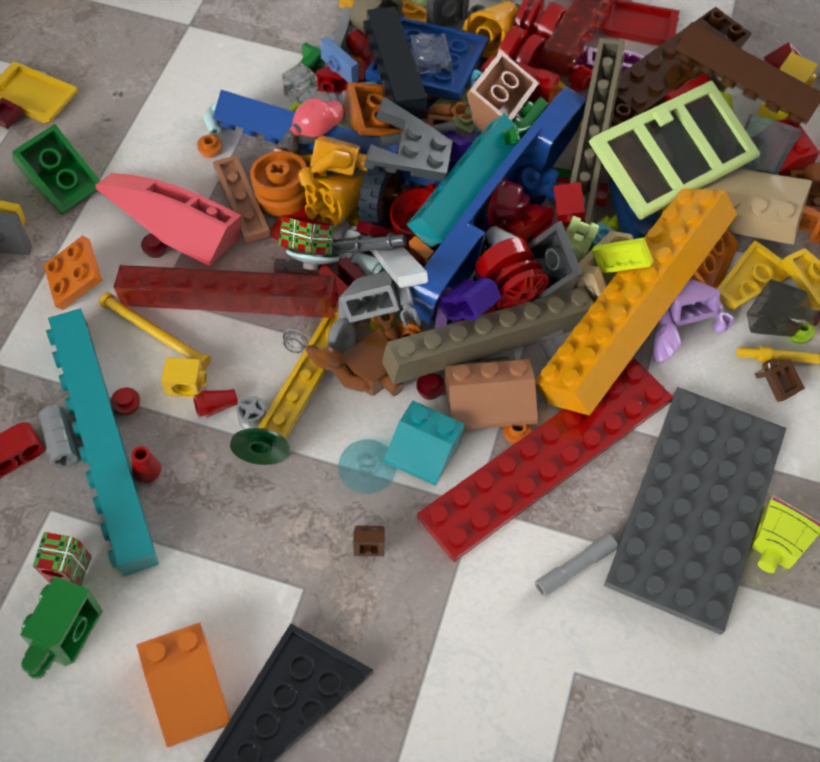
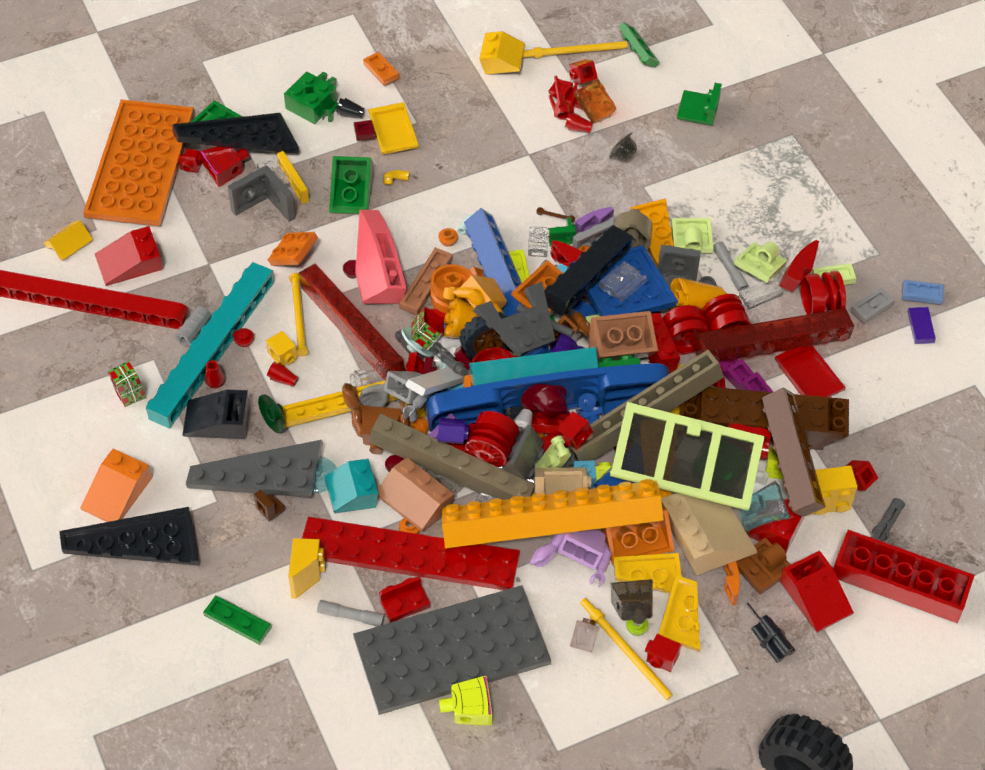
camera: 50 degrees right, 5 degrees down
(58, 626) = (92, 411): green hinge -> none
(89, 128) = (395, 174): none -> yellow arm
(200, 501) = (218, 415): none -> black slope
(249, 406) = (292, 391): light grey wheel -> none
(262, 62) = (540, 211): none -> reddish brown hinge
(311, 121) = (501, 266): coral hair -> none
(324, 27) = (593, 218): none -> medium lavender slope
(329, 503) = (275, 471): none -> dark grey wing
(339, 60) = (567, 243): medium blue plate -> none
(482, 687) = (237, 620): none -> green tile
(486, 562) = (305, 565): none -> yellow slope
(512, 136) = (584, 362): green hand -> none
(604, 504) = (403, 599): none -> red bracket
(622, 255) = (562, 481): neon yellow plate -> none

